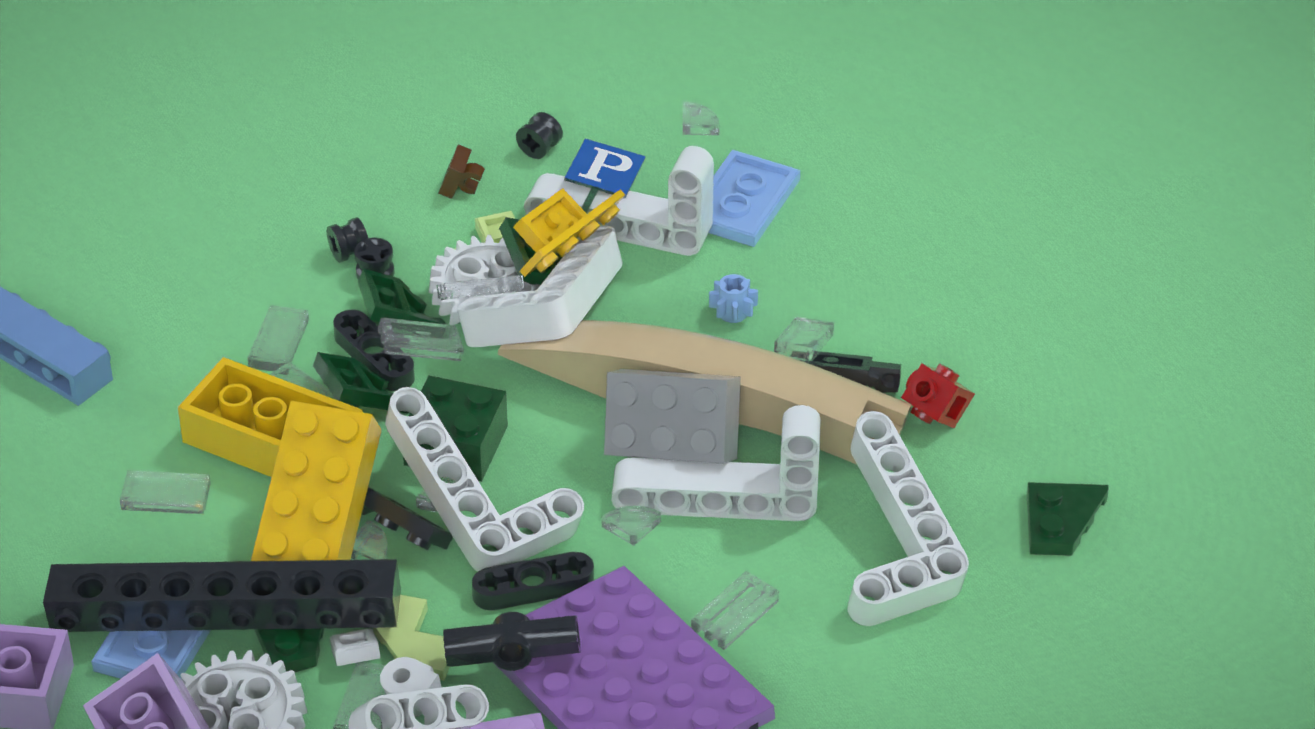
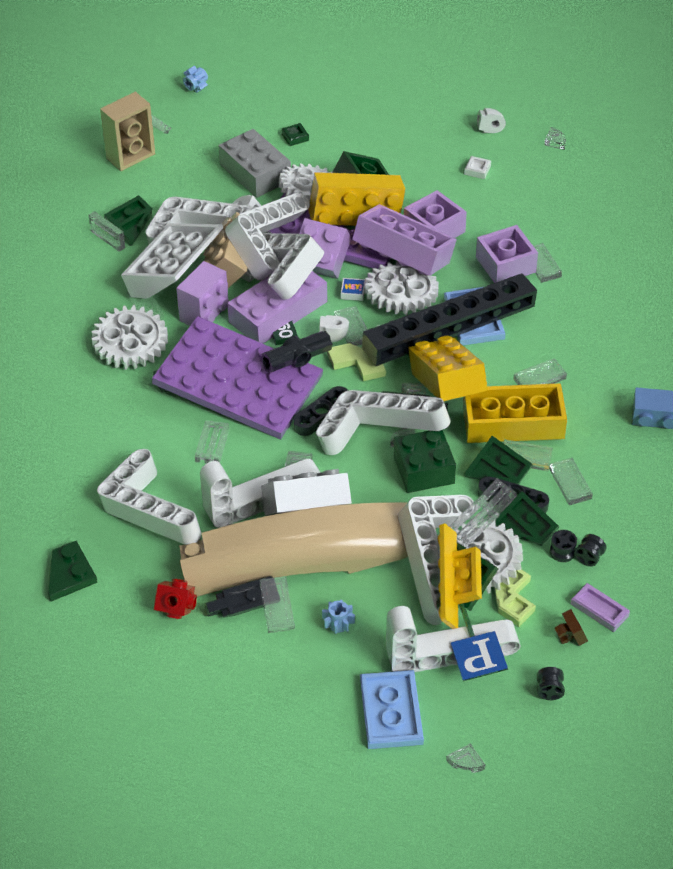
camera: 150 degrees right, 5 degrees up
(397, 193) = (600, 607): none -> lavender tile

